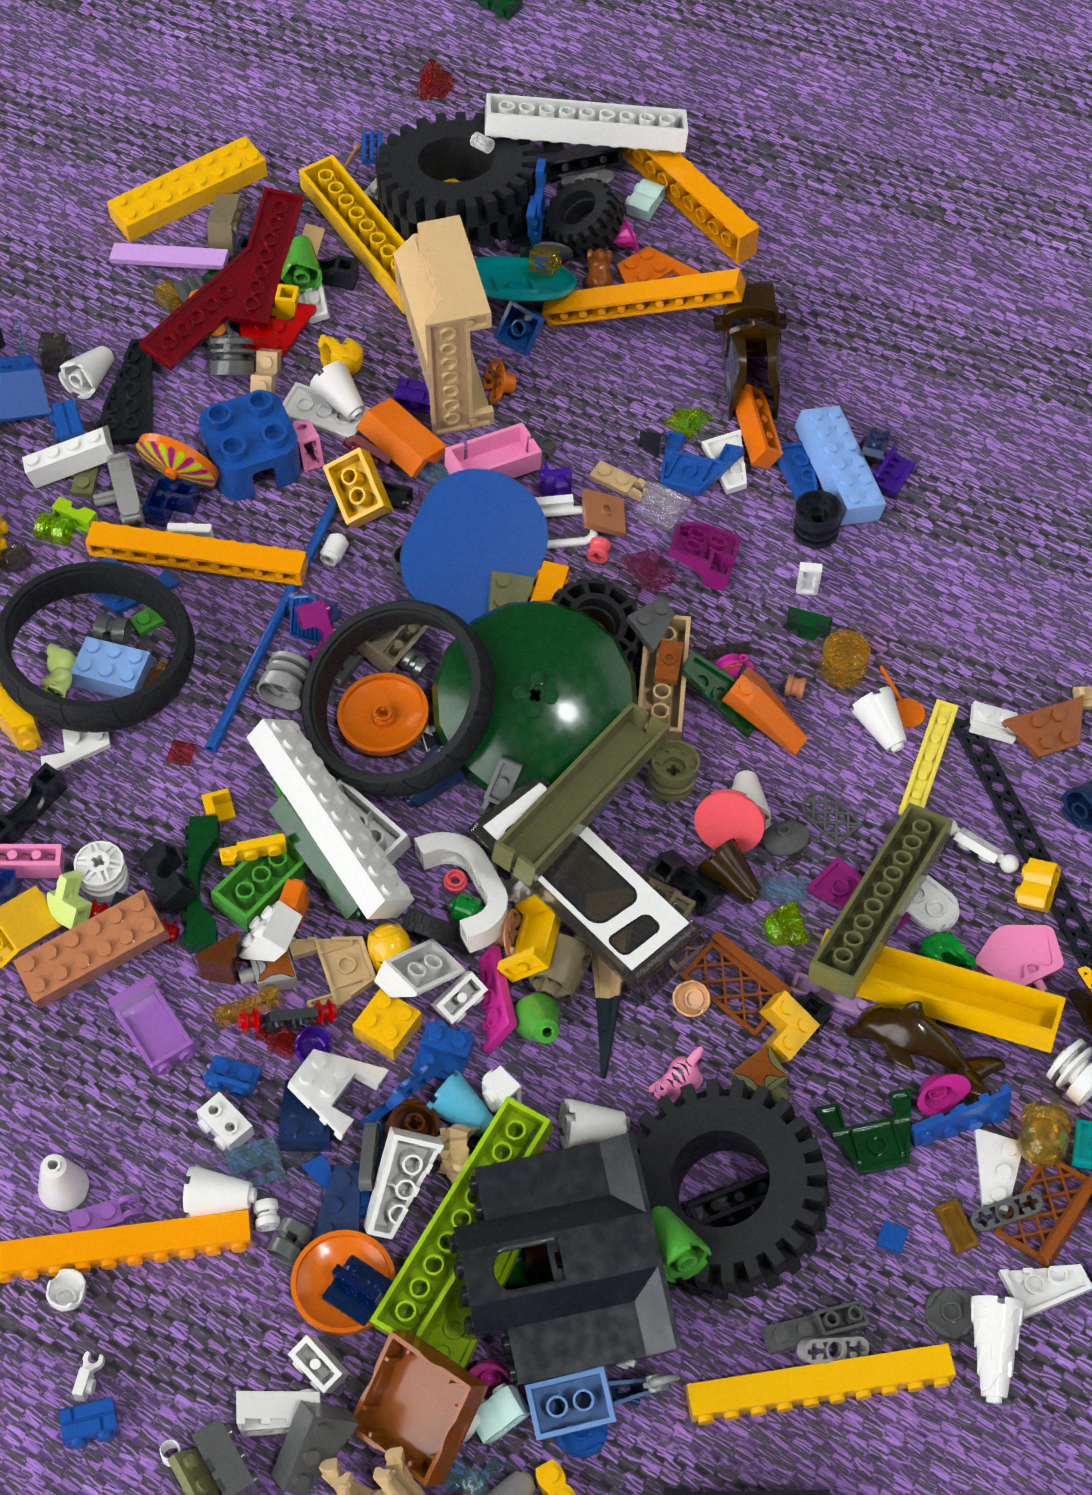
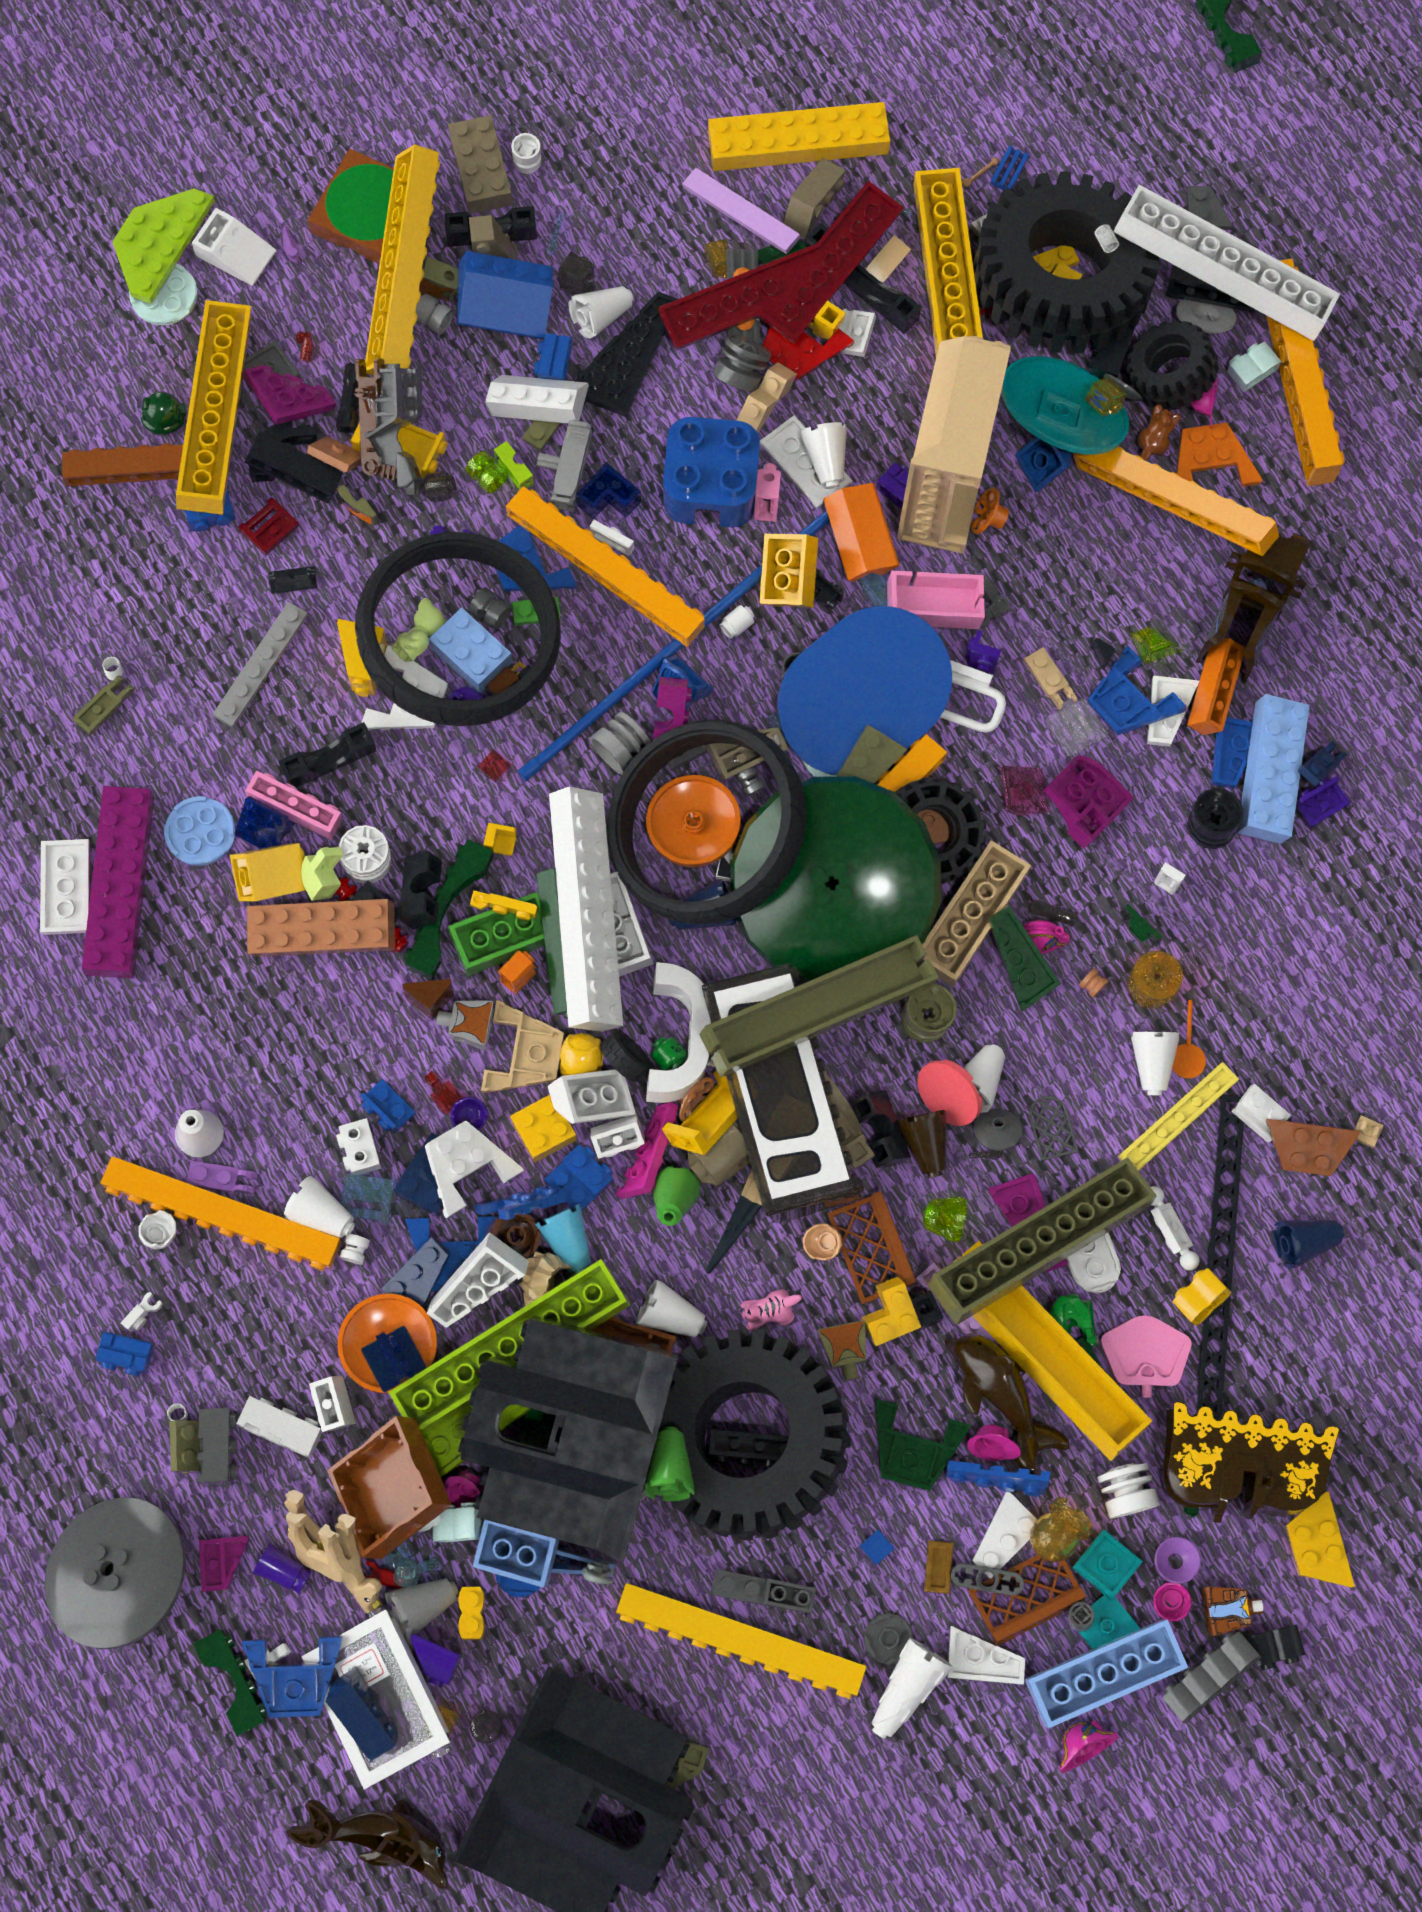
camera: 25 degrees right, 15 degrees up
(152, 1026) = (341, 1025): medium lavender panel -> none
(177, 460) = (627, 463): dish -> none
(264, 1001) = (430, 1049): clear yellow hinge -> none
(270, 933) = (480, 994): white slope -> none
(283, 1248) = (353, 1287): dark grey wheel -> none
(294, 1018) = (446, 1082): plate -> none
(302, 265) = (862, 287): bright green cone -> none
(314, 1435) = (293, 1466): dark grey wedge -> none
(349, 352) = (855, 414): yellow helmet -> none
(369, 1156) = (464, 1243): dark grey beam -> none
(379, 457) = (812, 527): dark red plate -> none
(433, 81) = (1112, 119): clear red brick -> none
(455, 874) = (675, 1012): coral plate -> none
(497, 1086) = (605, 1243): white brick -> none
(501, 782) = (761, 950): dark grey hinge -> none
(537, 205) = (1119, 348): blue wing -> none
(598, 550) = (987, 745): coral wheel -> none
(603, 512) = (1013, 708): nougat plate -> none
(651, 622) = (988, 855): dark grey wing -> none
(669, 662) = (982, 903): dark orange plate -> none
(760, 706) = (1048, 988): orange wedge -> none
(783, 889) = (966, 1178): clear light blue tile -> none
(824, 1342) = (760, 1609): light grey beam -> none

